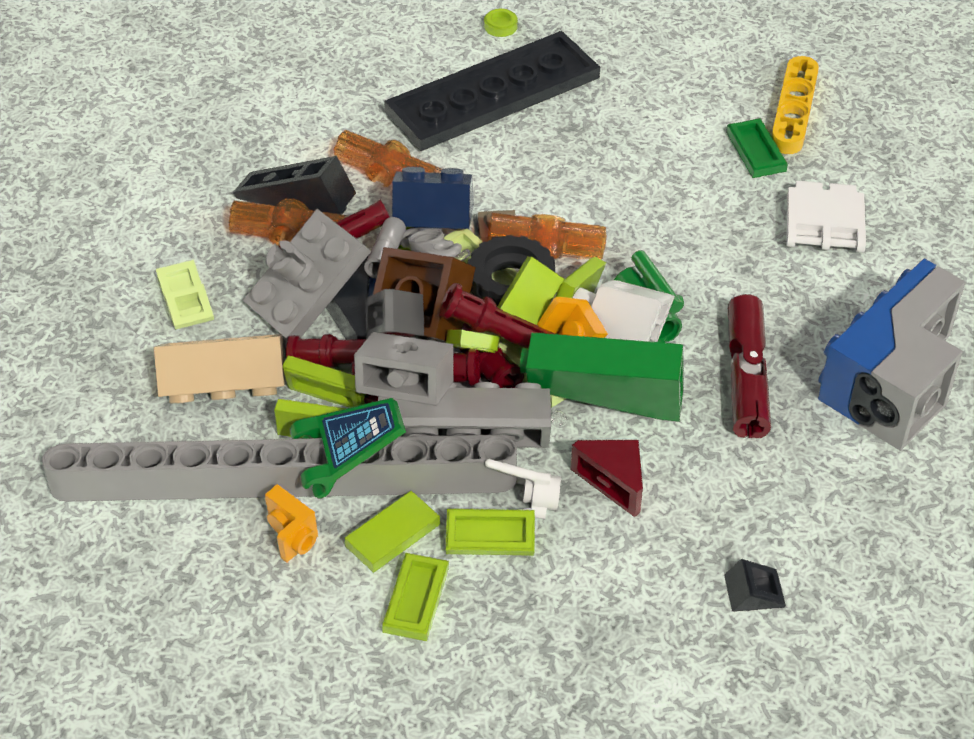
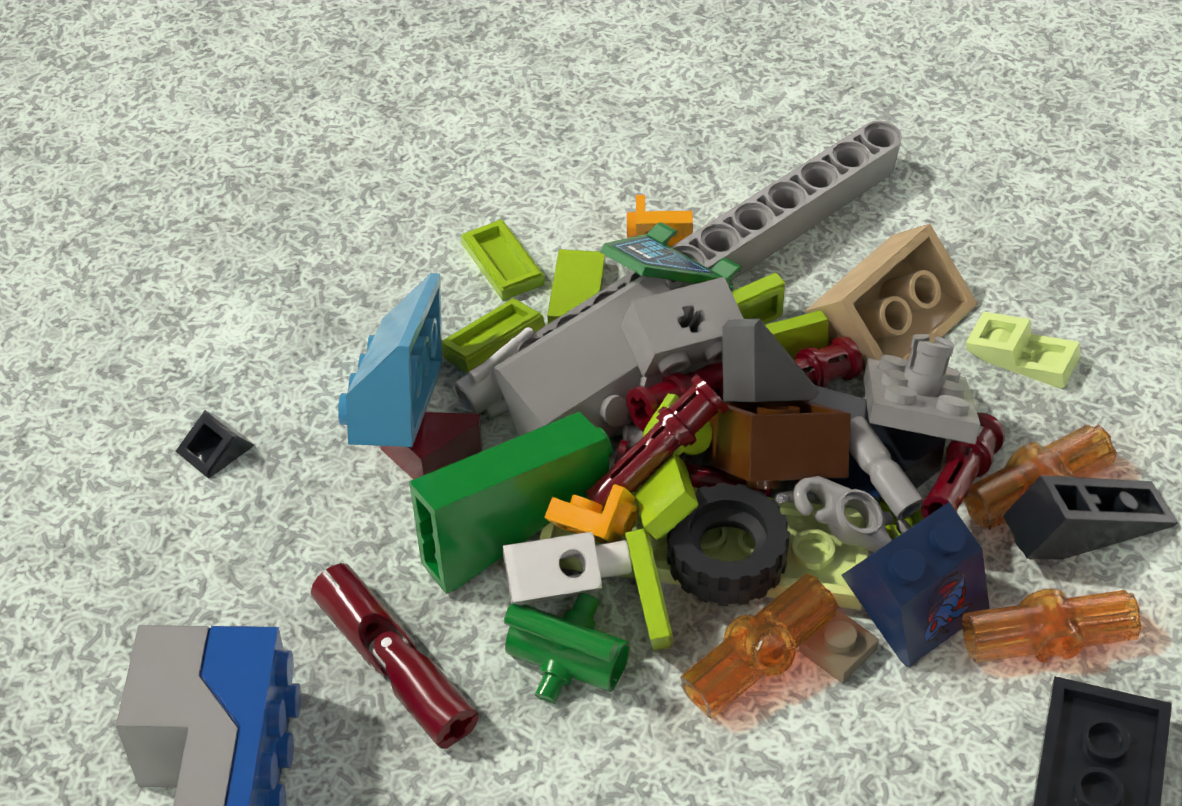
camera: 140 degrees right, 0 degrees up
(605, 482) = (397, 372): none -> dark azure slope

